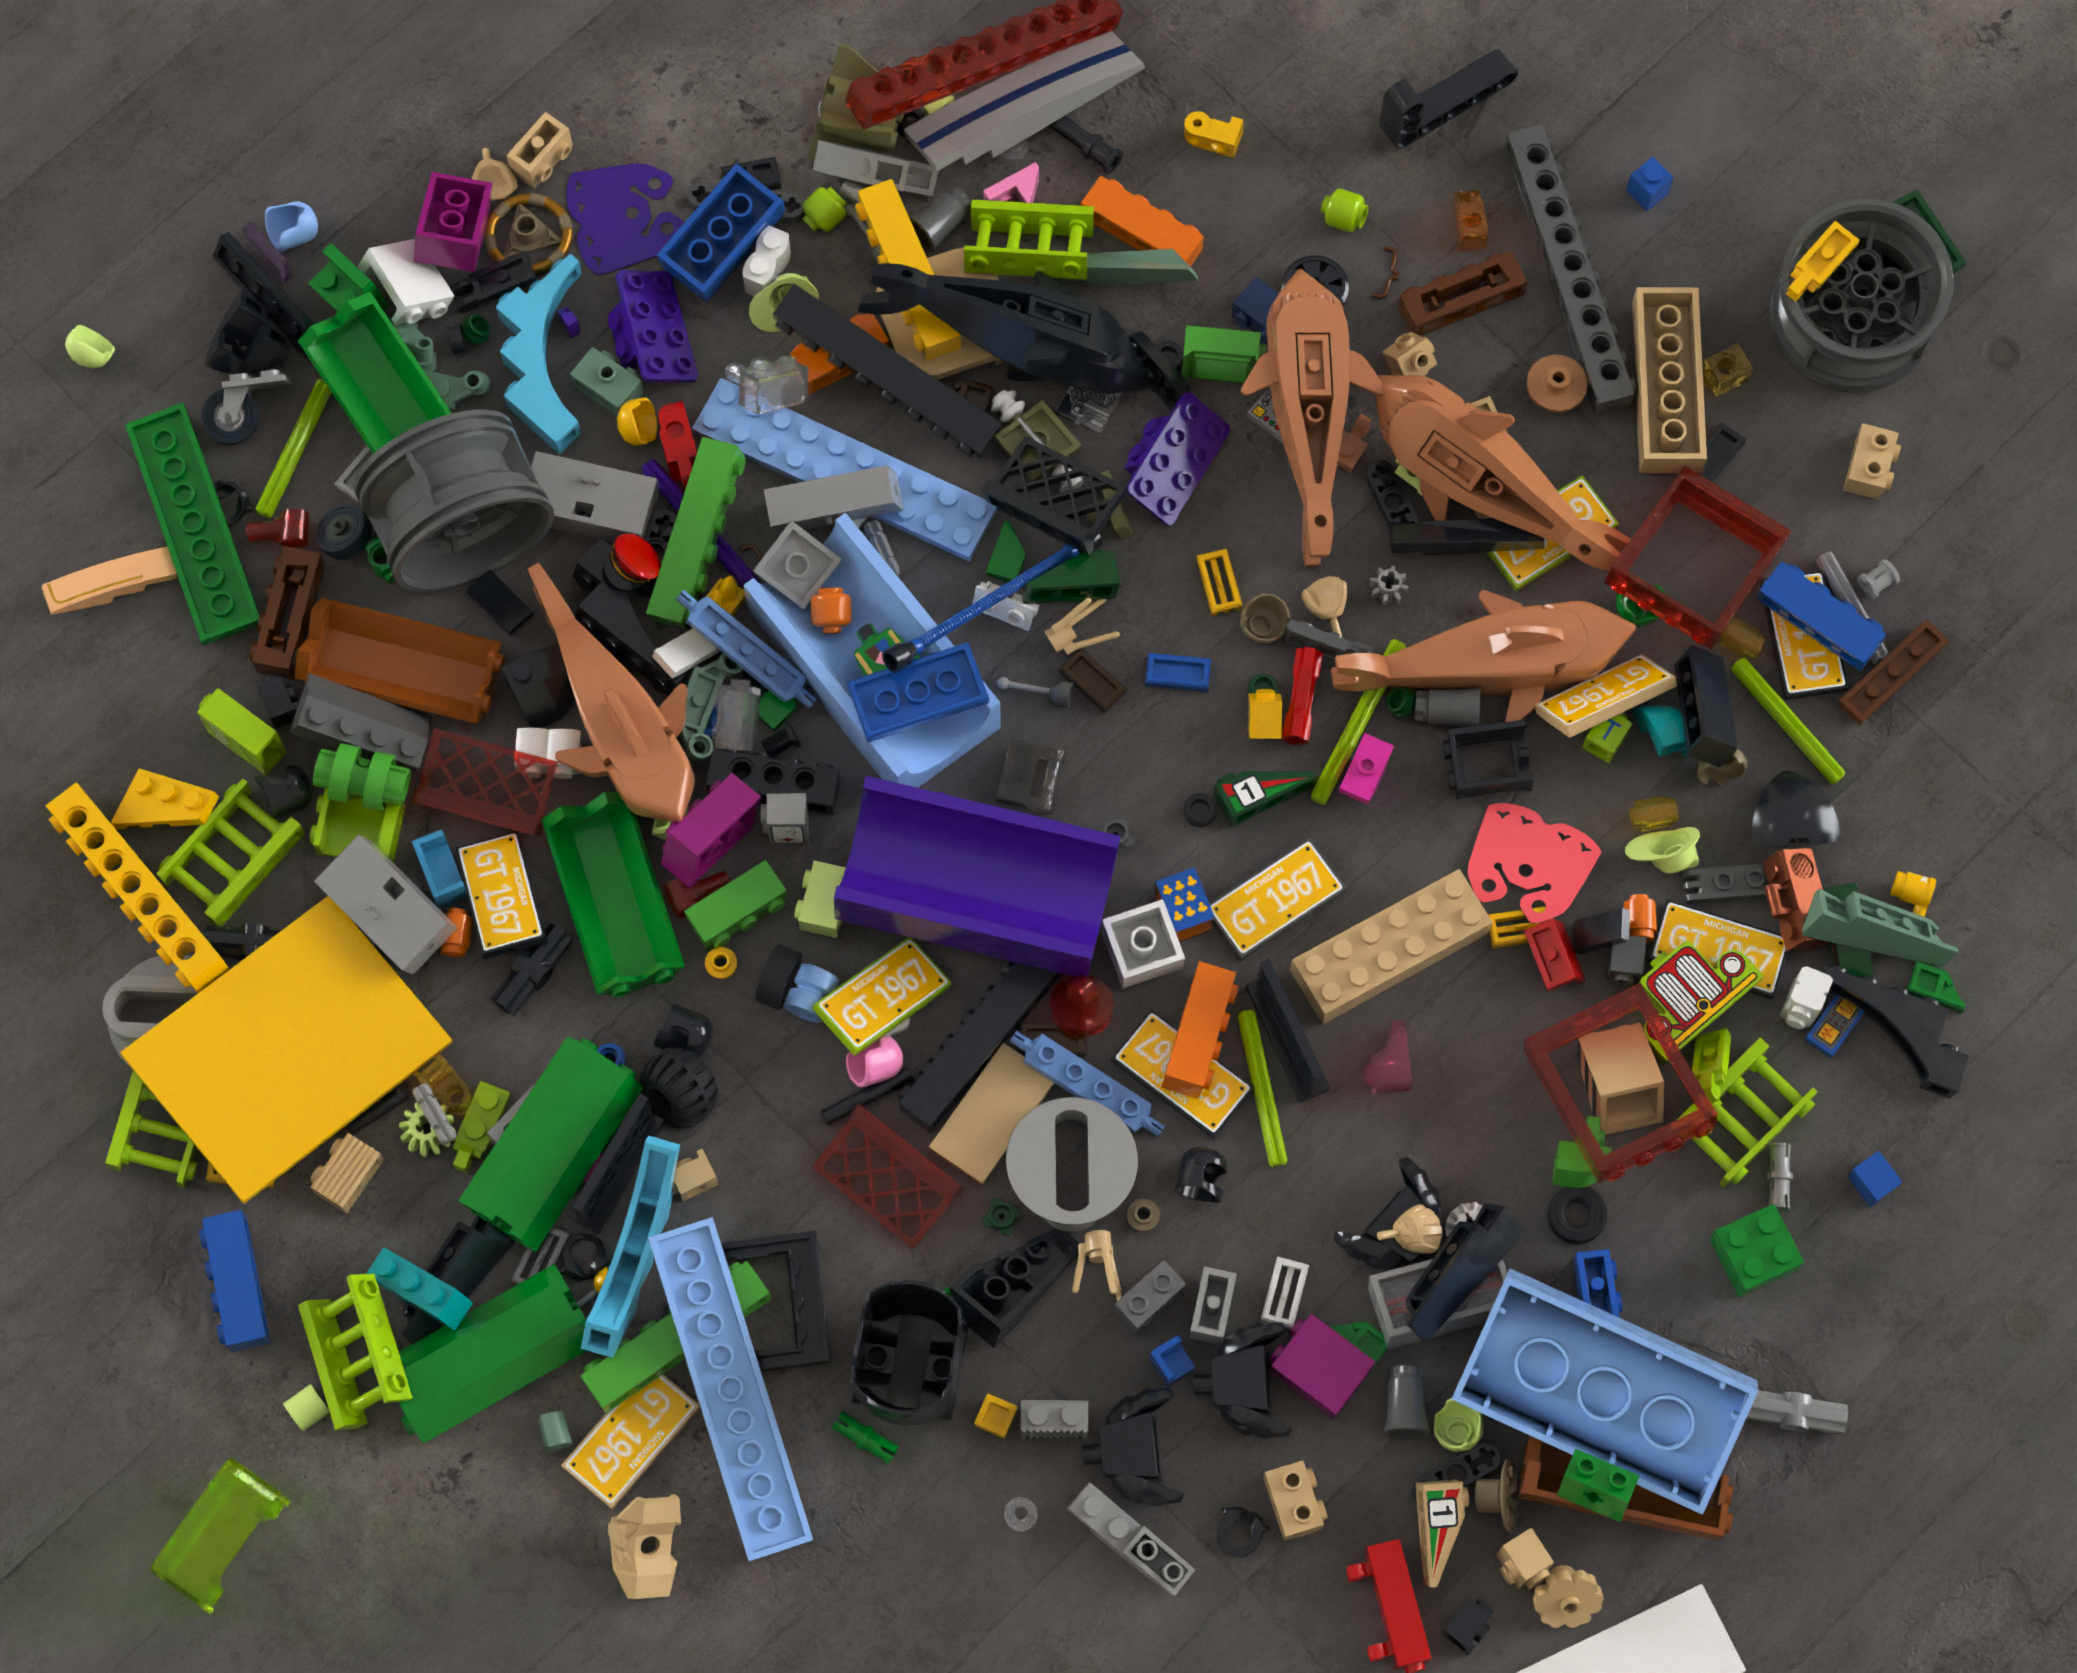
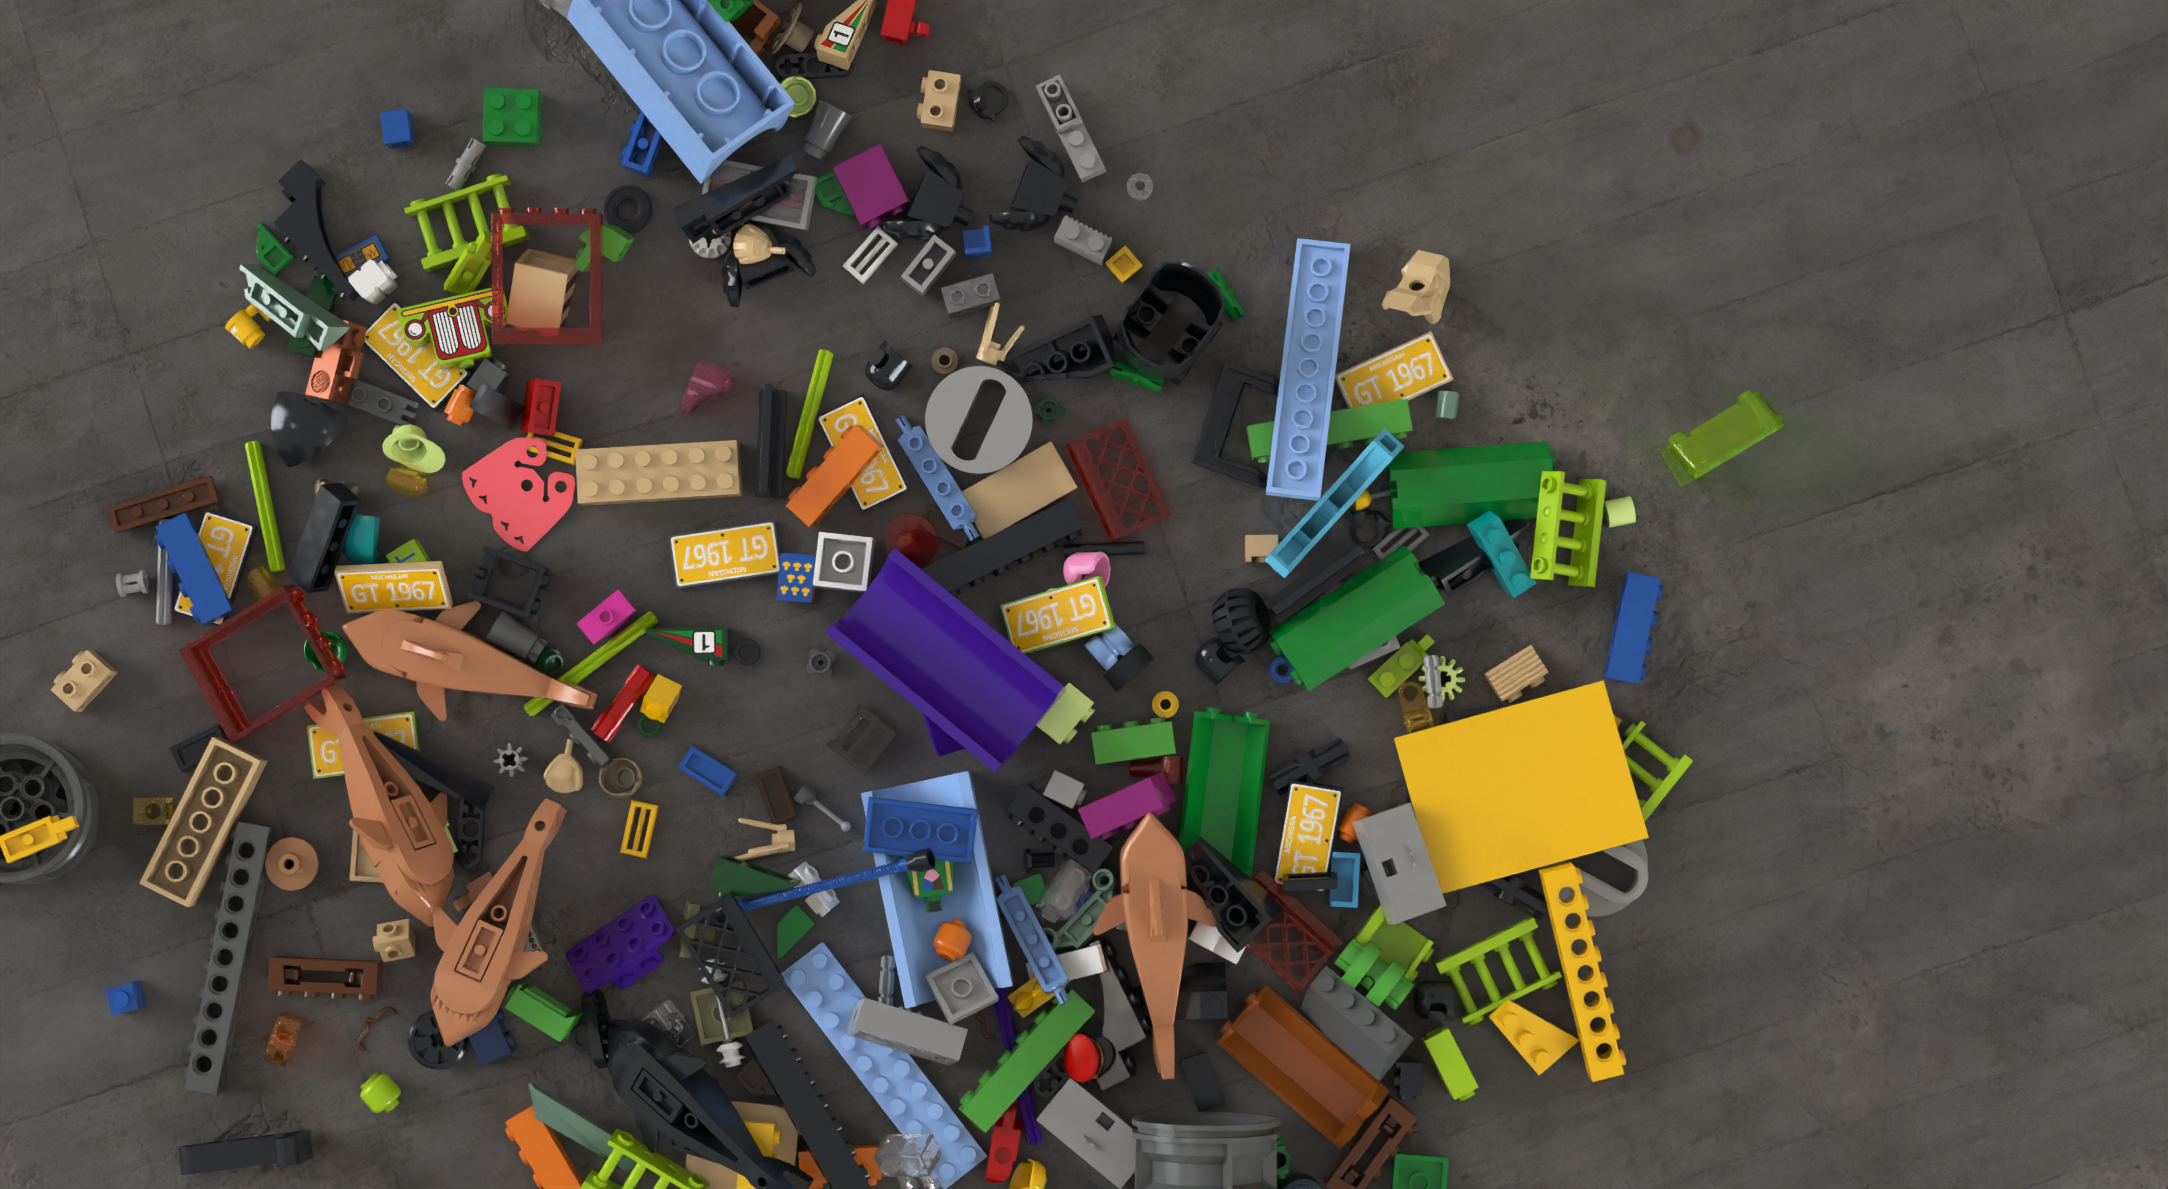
camera: 150 degrees left, 15 degrees up
(476, 846) = (1310, 881): none -> black tile
(544, 784) = (1235, 899): none -> black wedge

